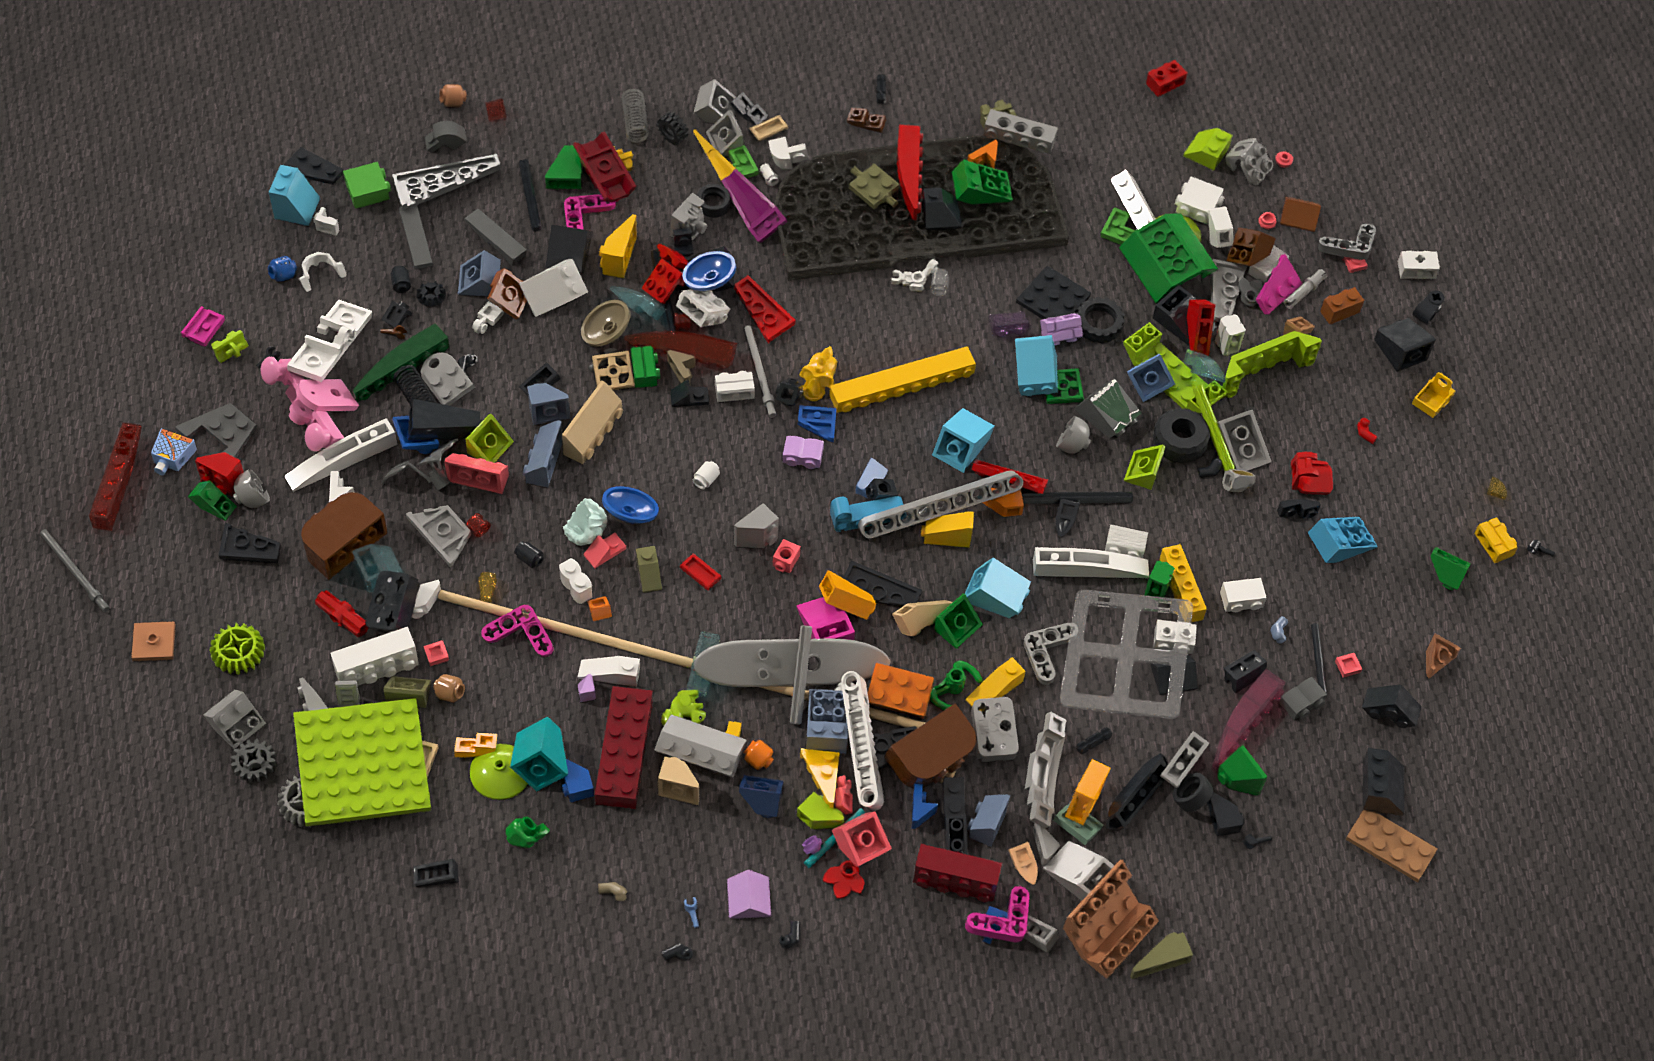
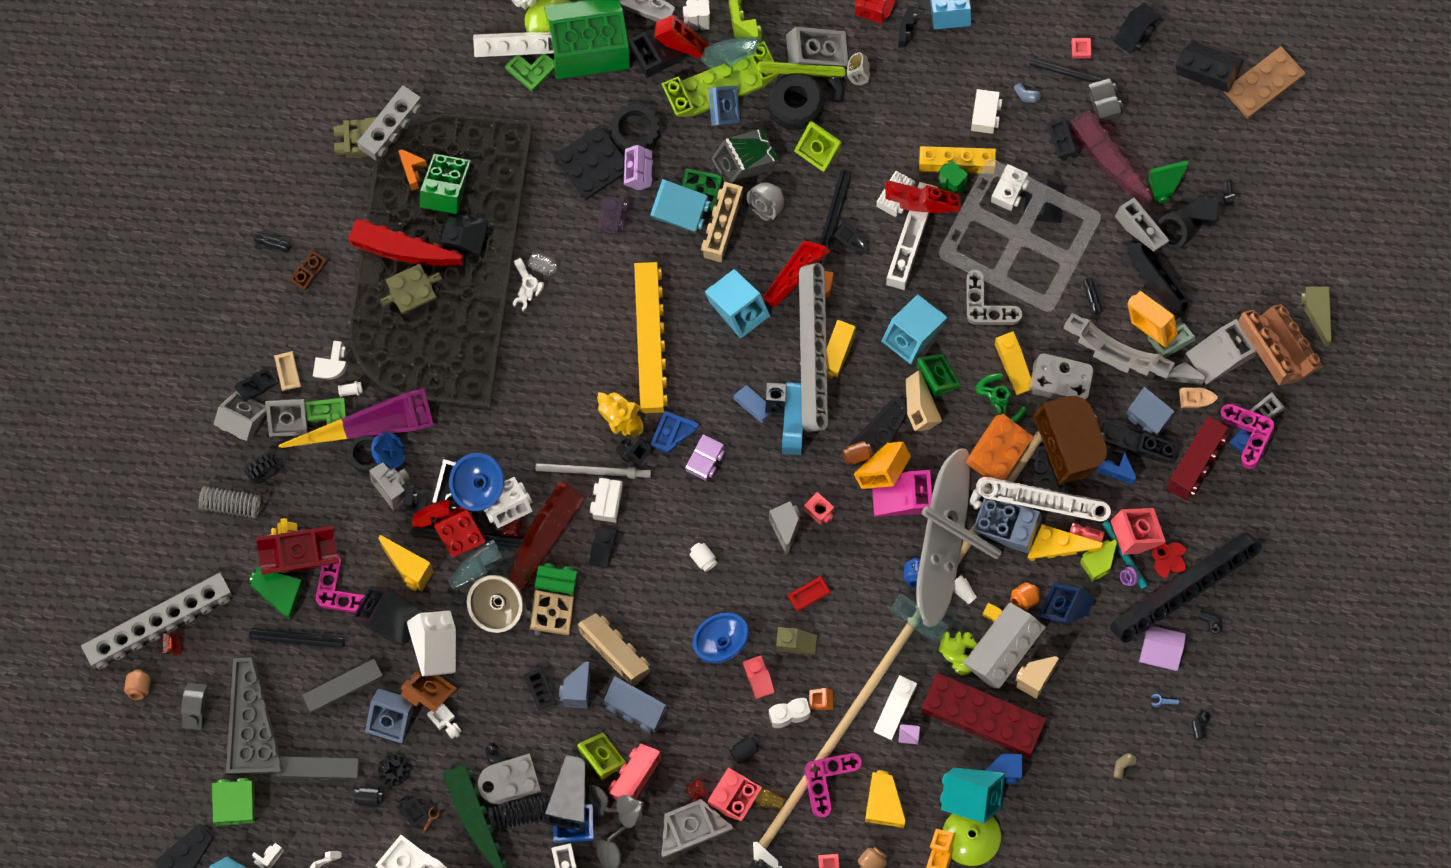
camera: 65 degrees left, 15 degrees up
(481, 552) = (734, 795): none -> coral slope
(512, 683) = (884, 801): none -> yellow slope
(514, 95) = (146, 620): none -> light grey brick
(525, 832) = (1047, 827): green head -> none
(586, 523) = (730, 686): light aqua hair -> none
(681, 365) = (563, 547): dark tan slope -> none
(720, 211) = (388, 449): none -> blue tile
(748, 699) = (964, 590): none -> white cone
(764, 310) = (525, 443): red wing -> none
(843, 914) = (1185, 587): none -> black beam
(850, 568) = (857, 452): none -> dark orange brick
(1037, 406) = (723, 221): none -> tan brick
(1126, 558) = (922, 200): none -> red slope

